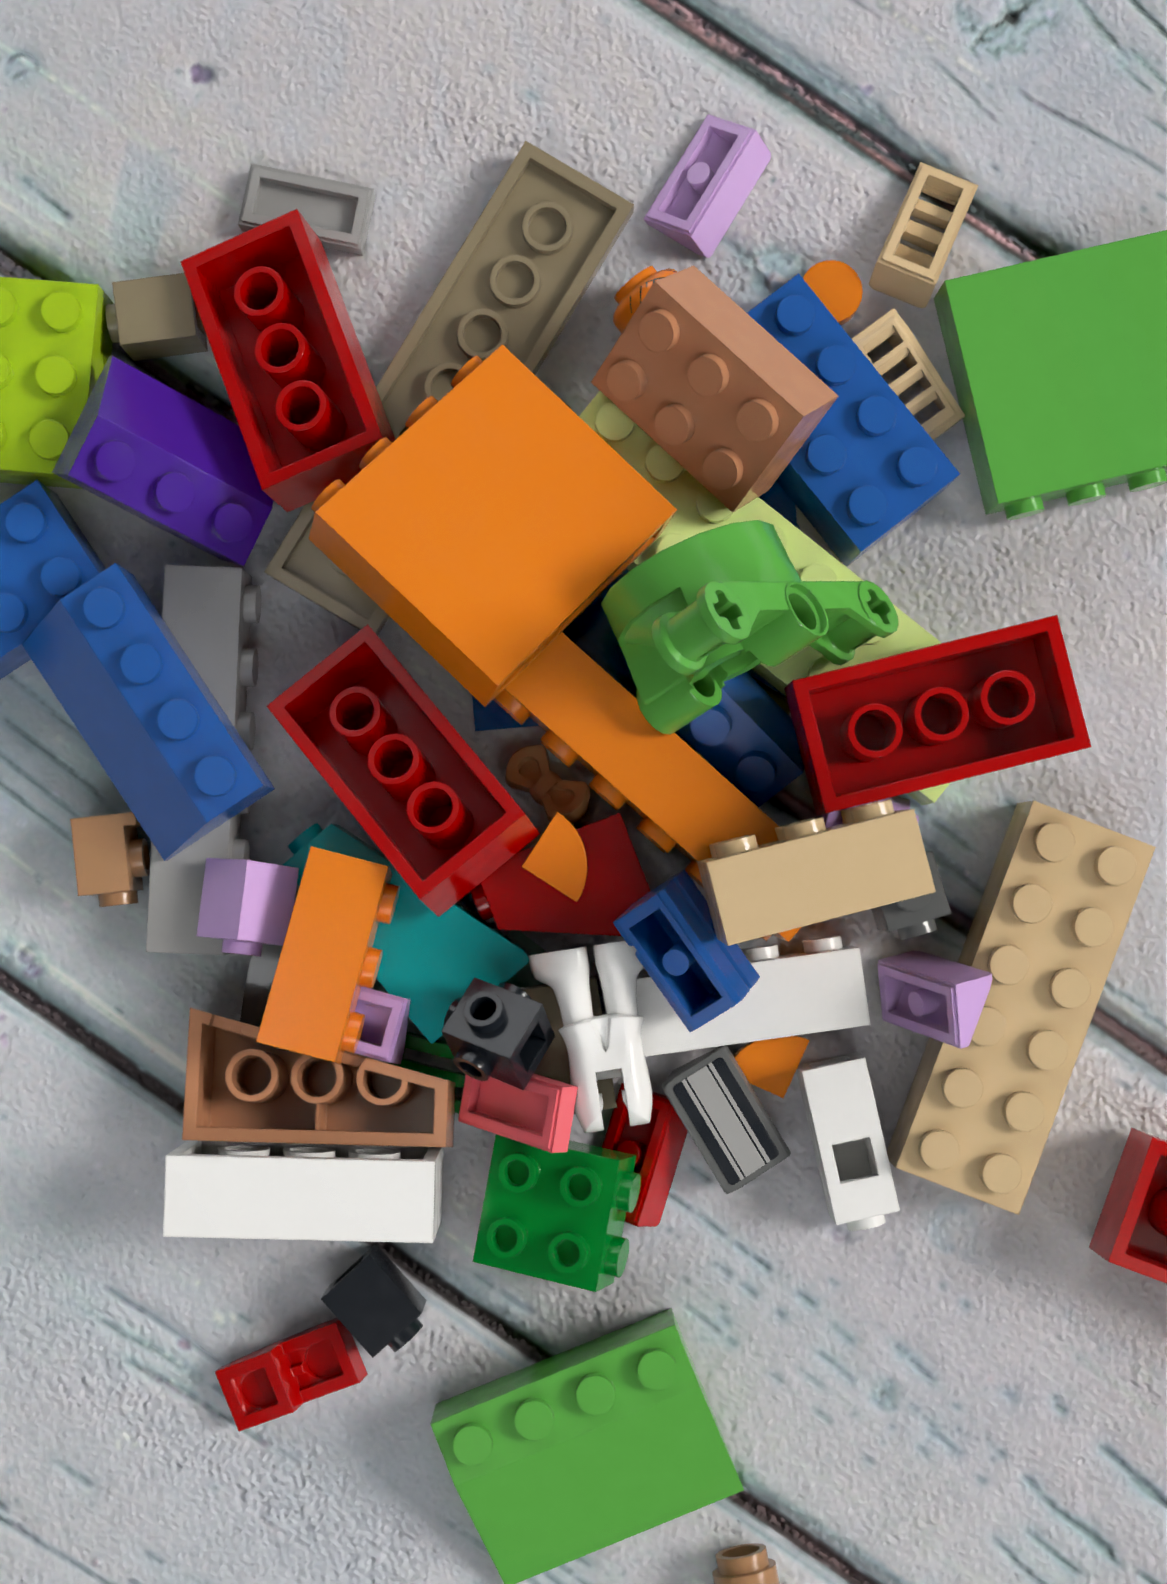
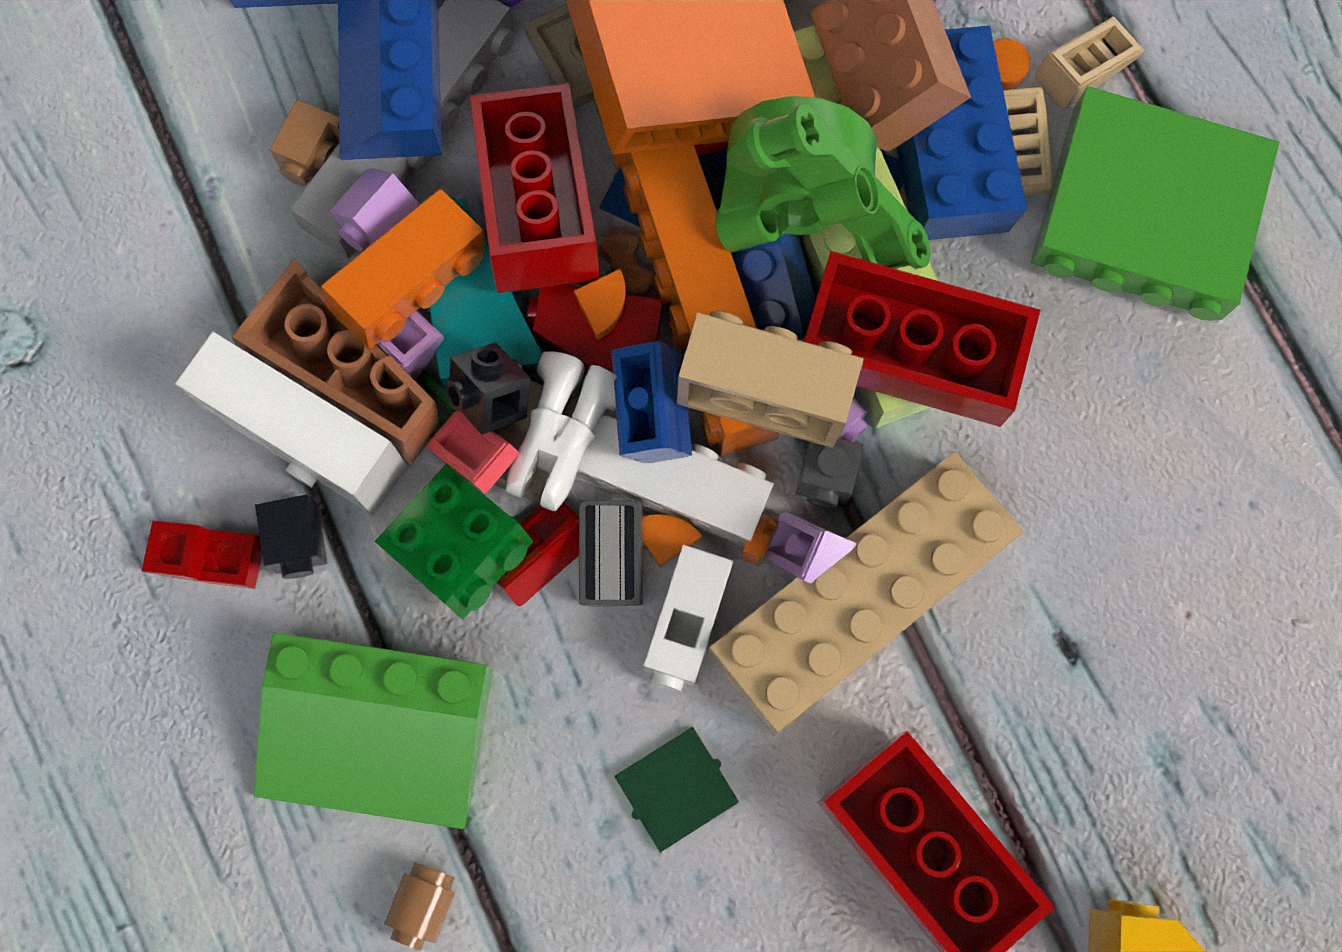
camera: 30 degrees right, 10 degrees down
(879, 1015) = (755, 550): none -> orange tile
(935, 1318) = (676, 789): none -> clear green piece

